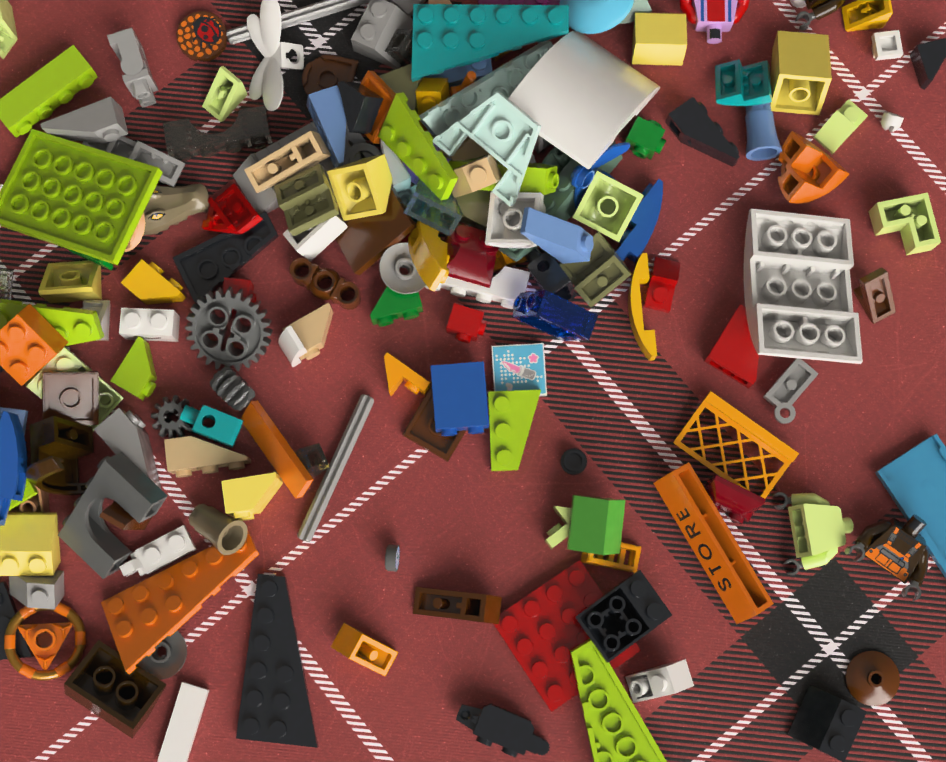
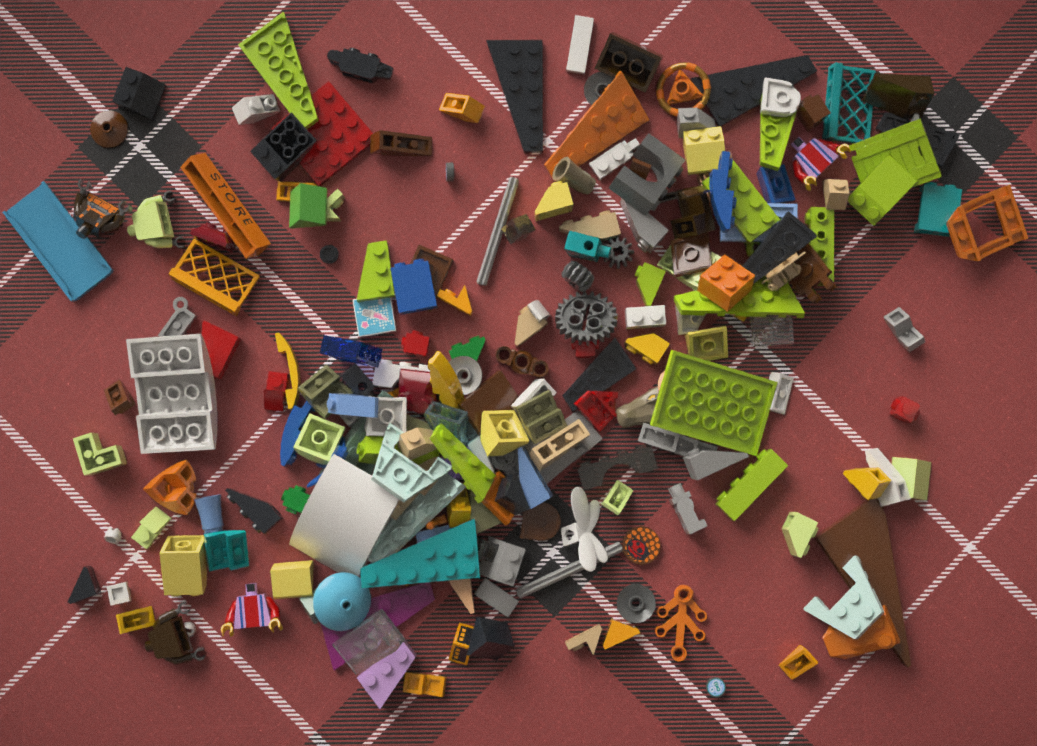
camera: 175 degrees right, 5 degrees up
(276, 449) = (540, 236): orange tile -> none

